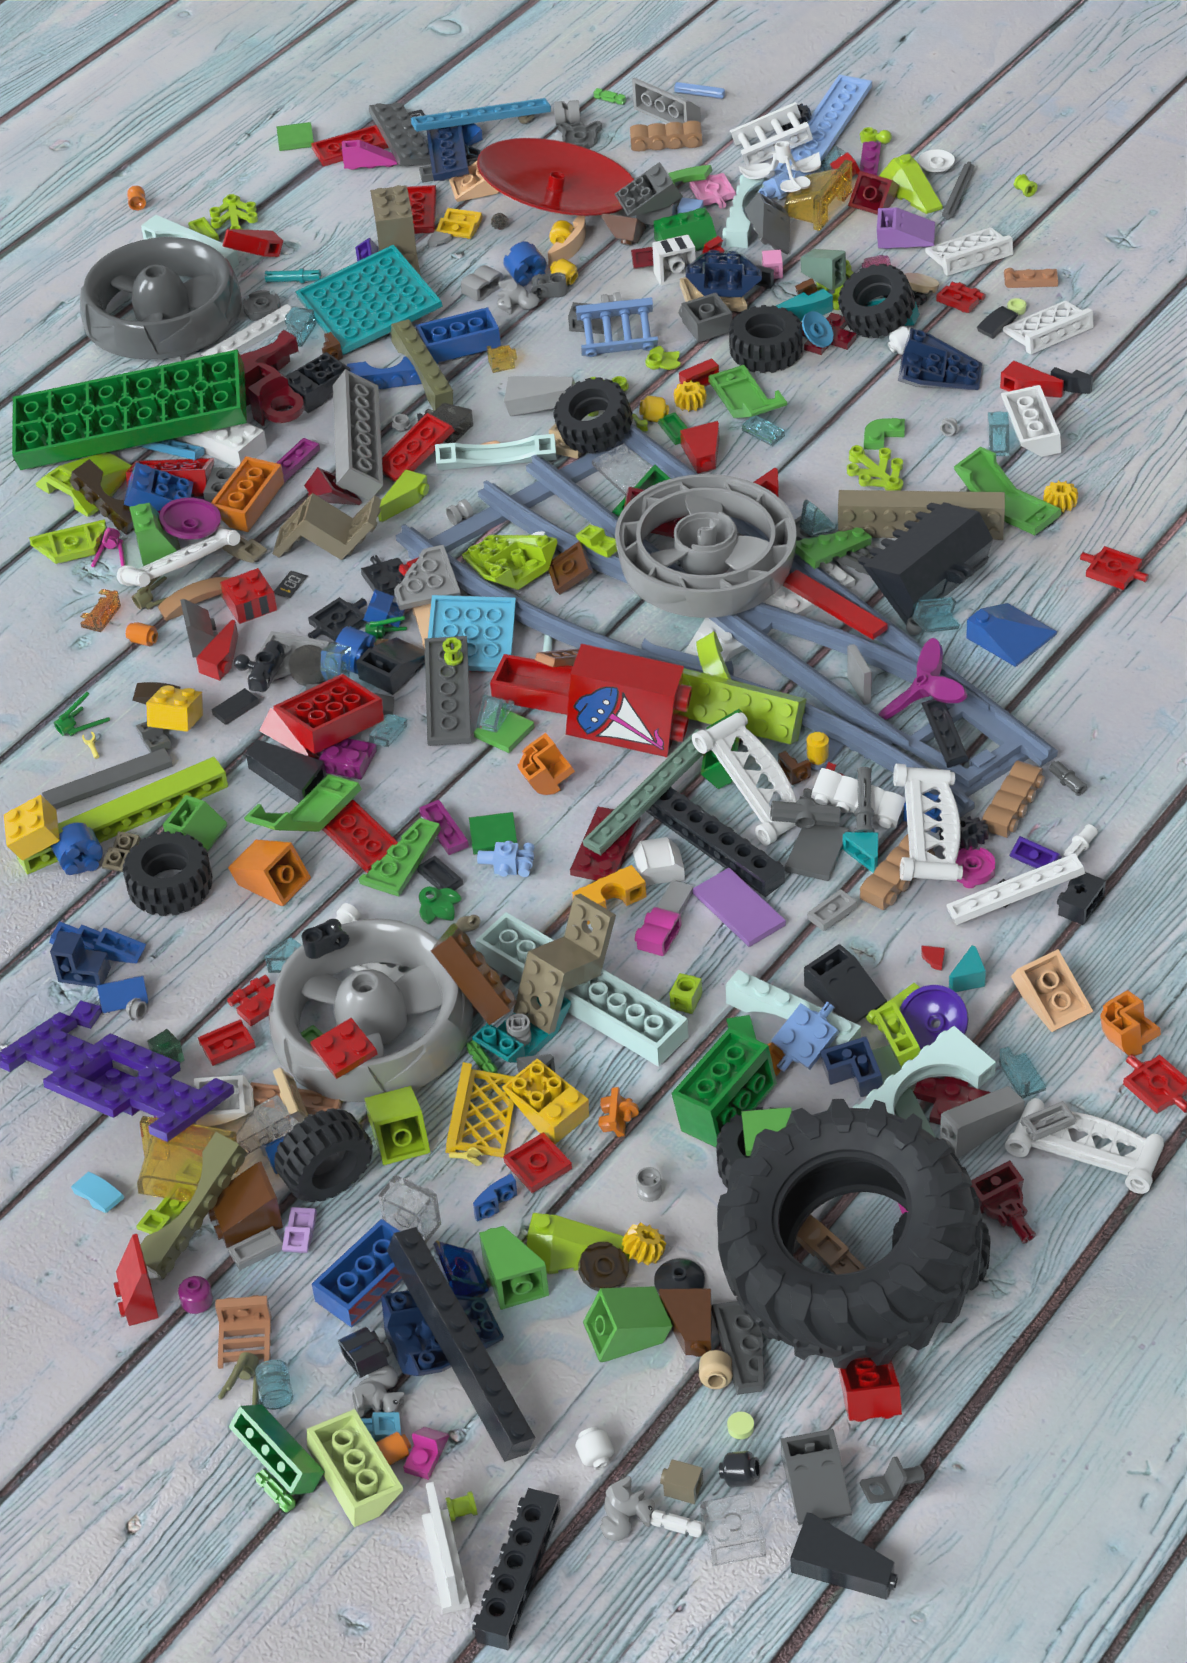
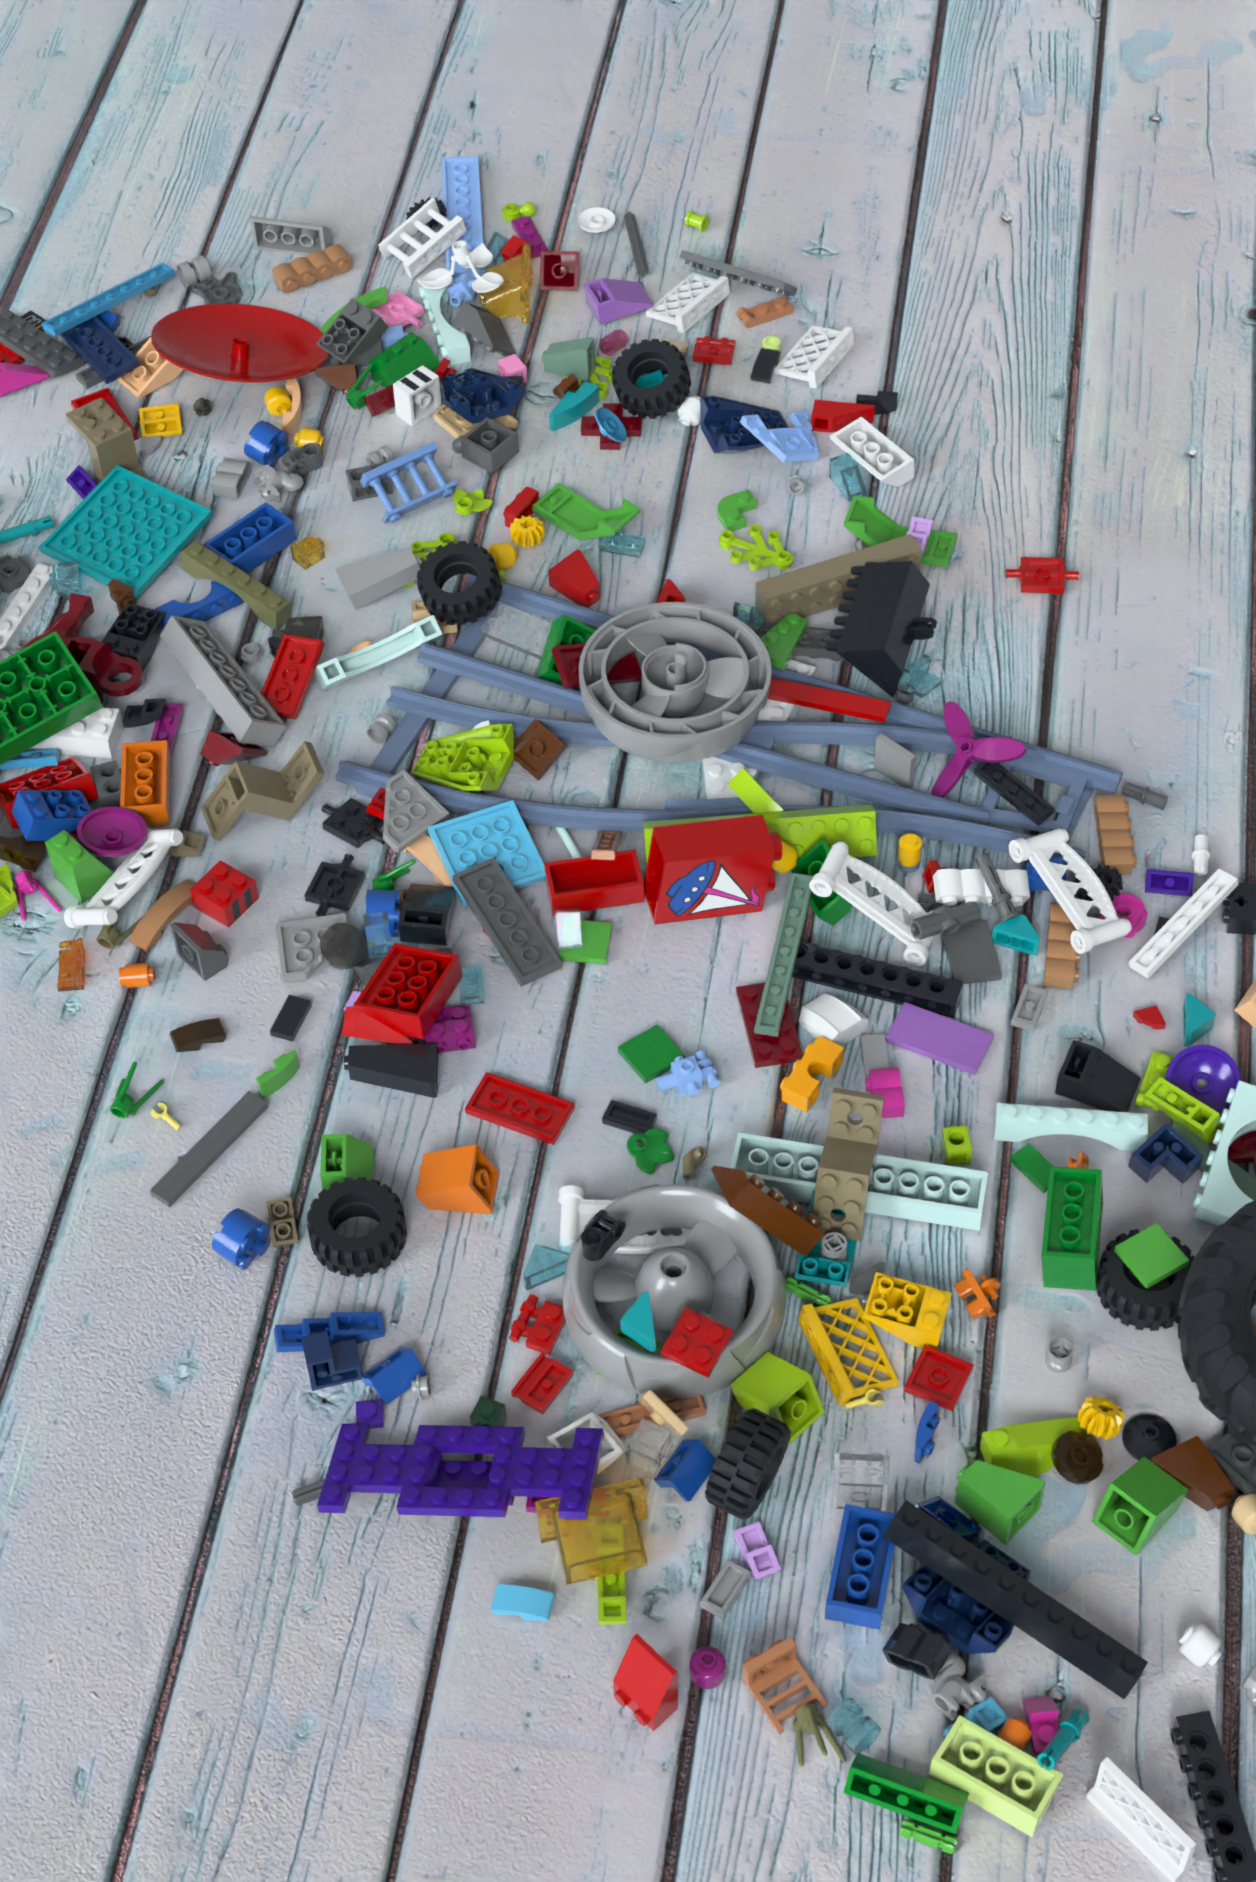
camera: 30 degrees left, 5 degrees up
(31, 827) = (186, 1235): yellow brick -> none
(140, 806) = (256, 1179): lime brick -> none
(153, 737) = (225, 1082): dark grey slope -> none
(174, 708) = (236, 1045): yellow brick -> none
(200, 742) = (273, 1080): none -> bright green slope
(218, 655) = (237, 968): red slope -> none
(220, 1162) = (650, 1514): olive arch -> none
(246, 1207) = (693, 1551): reddish brown slope -> none
(264, 668) = (301, 964): black piece -> none
(285, 442) = (144, 714): none -> black slope
(290, 584) = (254, 864): black sticker -> none
(309, 1013) = (638, 1323): none -> teal slope
(313, 811) = (457, 1097): bright green windscreen -> none
(382, 608) = (377, 858): blue piece -> none
(402, 860) = (584, 1117): bright green wing -> none
(404, 494) = (312, 722): lime slope -> none
(432, 1463) = (1068, 1732): none -> teal pin
(449, 651) = (492, 881): lime bush -> none
(450, 835) = (600, 1066): magenta plate -> none
(461, 1506) = (1124, 1759): lime bush -> none
(544, 766) = (660, 964): orange brick -> none
(597, 541) = (550, 712): lime slope -> none
(609, 96) = (222, 243): bright green axle -> none
(626, 246) = (356, 397): none -> green plant
(671, 426) = (531, 569): green tile -> none
(699, 90) = (310, 211): medium blue axle -> none
(699, 714) = (788, 859): none -> yellow head
(765, 338) = (558, 433): black tyre -> none
(794, 771) = (903, 879): reddish brown bracket -> none
(804, 1036) = (1107, 1143): medium blue plate -> none
(912, 183) = (593, 250): lime wedge -> none
(966, 390) = (787, 444): none -> light blue wing
(1008, 632) = (993, 672): blue slope -> none
(1023, 500) = (920, 530): none -> lavender slope
(1026, 238) = (735, 273): none -> plate
(1061, 495) = (947, 519): yellow gear -> none

